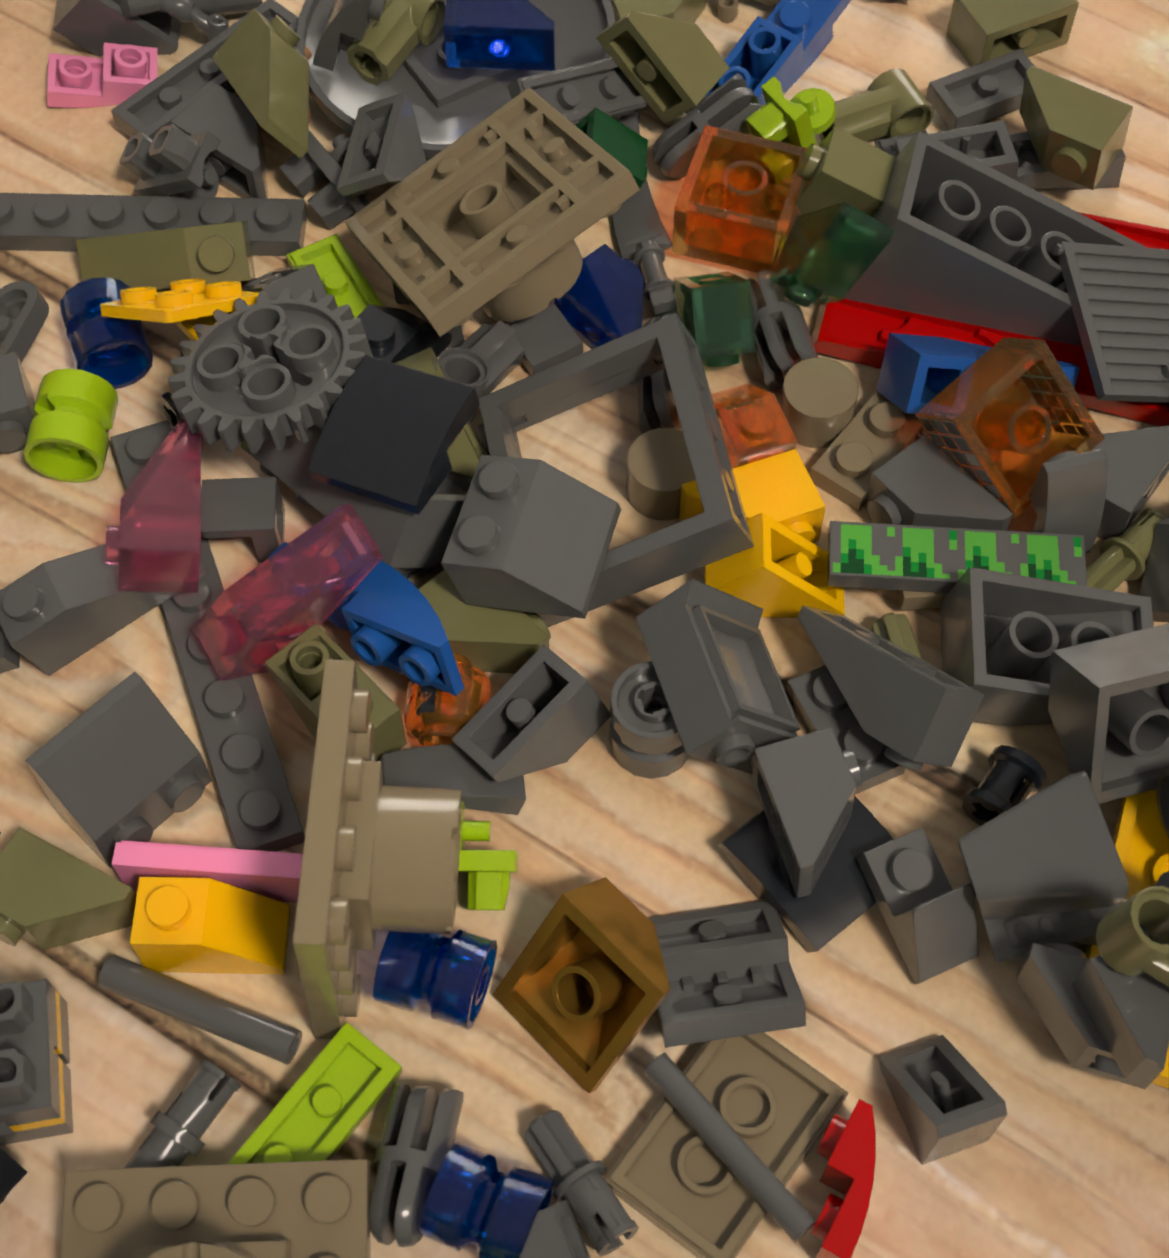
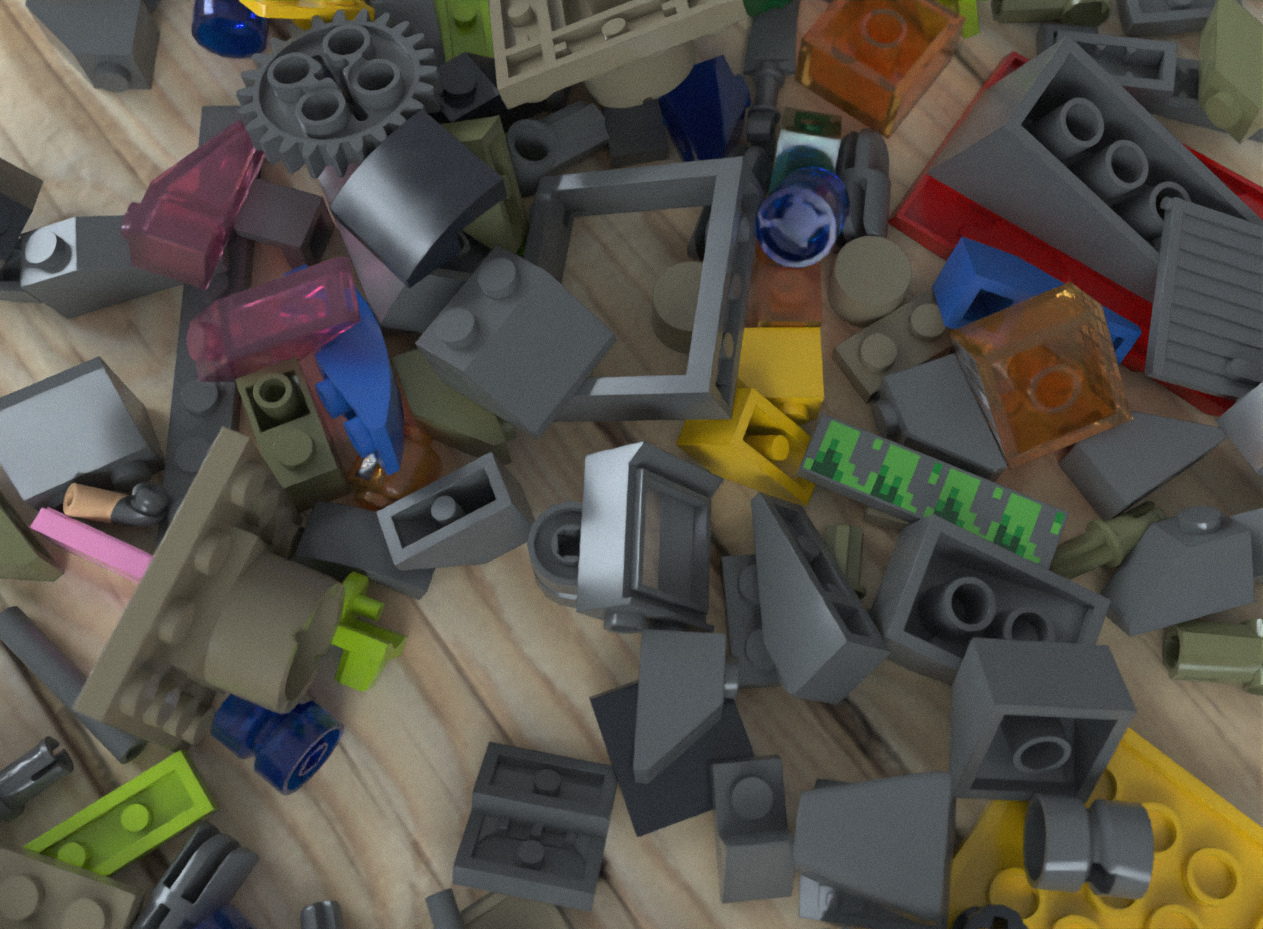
camera: 20 degrees right, 10 degrees up
(71, 425) = (168, 84): lime wheel -> none
(184, 825) = (95, 504): none -> arm
(208, 928) = (73, 601): yellow slope -> none
(587, 980) = (413, 787): pearl gold slope -> none
(743, 357) = (803, 217): none -> clear blue wheel
(828, 254) = (929, 137): clear green slope -> none
(843, 171) = (974, 67): olive slope -> none
(1006, 784) = (883, 741): black bush -> none
(1071, 495) = (1070, 469): dark grey slope -> none

